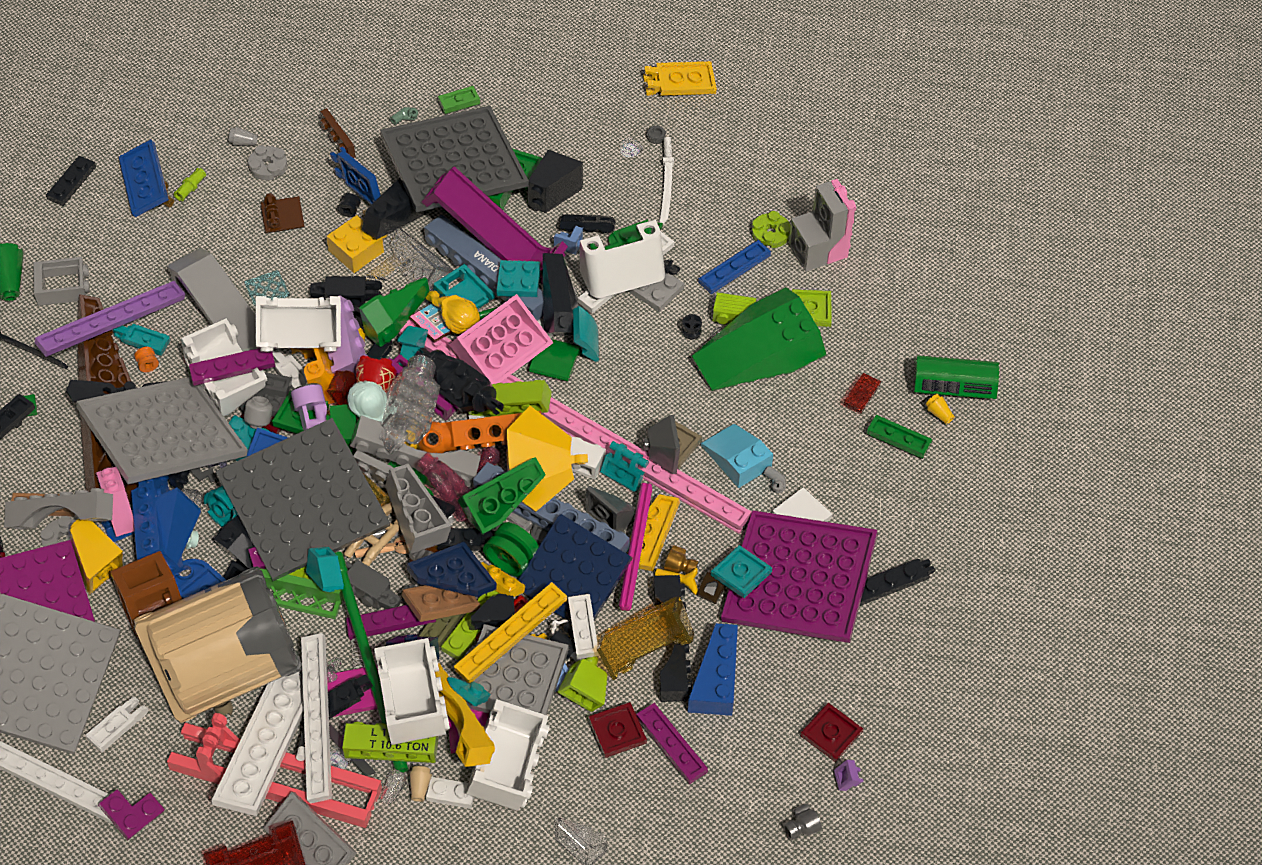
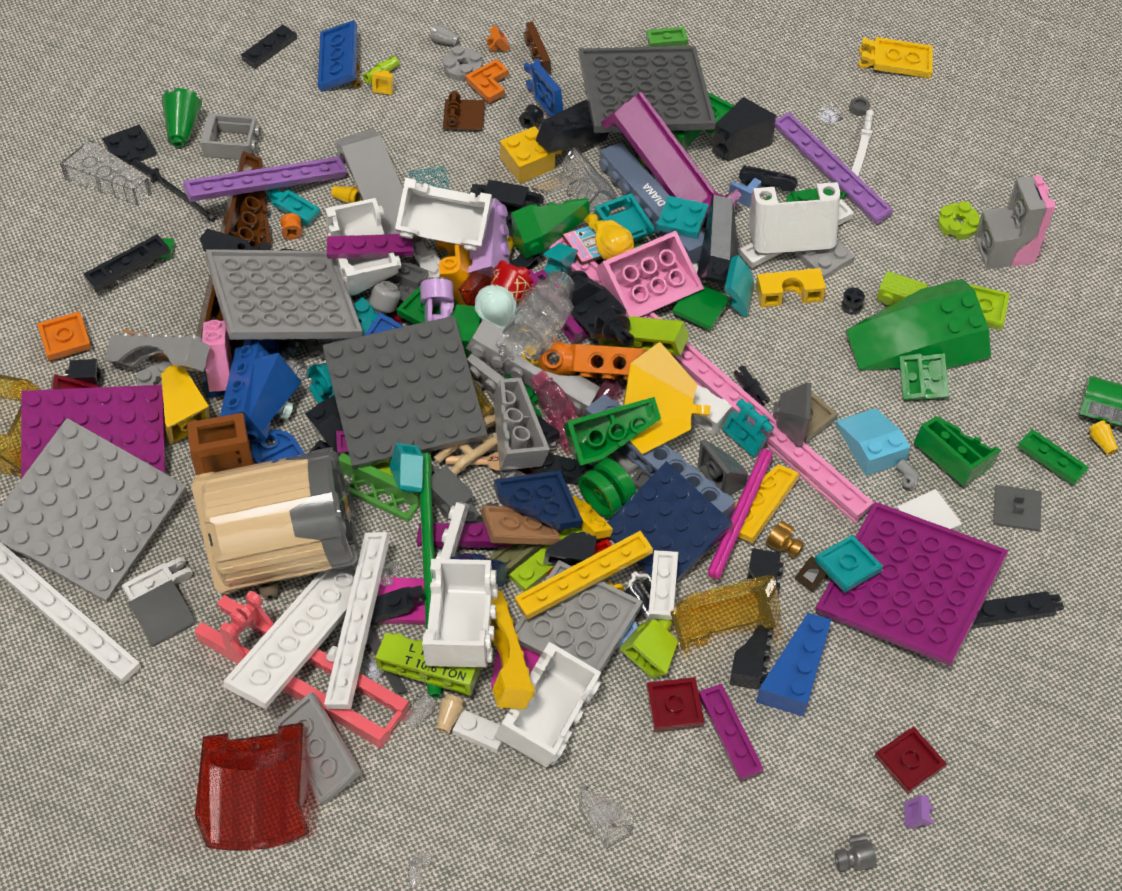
camera: 15 degrees right, 0 degrees up
(129, 818) = (140, 682): magenta plate -> none
(130, 752) = (162, 613): none -> dark grey slope
(192, 317) = (346, 194): none -> yellow cone
(195, 197) = (382, 82): none -> yellow tile
(294, 175) = (485, 80): none -> orange plate
(296, 131) = (497, 40): none -> orange tile
(382, 622) = (452, 535): none -> white plate
(404, 114) = (609, 42): sand green arm -> none
(472, 692) = (526, 629): teal plate -> none
(618, 426) = (751, 385): none -> black pin
(645, 201) = (833, 168): none -> medium lavender tile
(645, 318) = (806, 283): none -> yellow arch
(669, 268) = (843, 238): black plant -> none
(687, 579) = (788, 559): yellow piece -> none
(734, 267) = (911, 250): blue tile -> none
(771, 386) = (924, 377): none -> slope
(813, 449) = (954, 451): none -> green wedge
(862, 393) = (1021, 404): clear red plate -> none
(877, 489) = (1017, 508): none -> dark grey piece

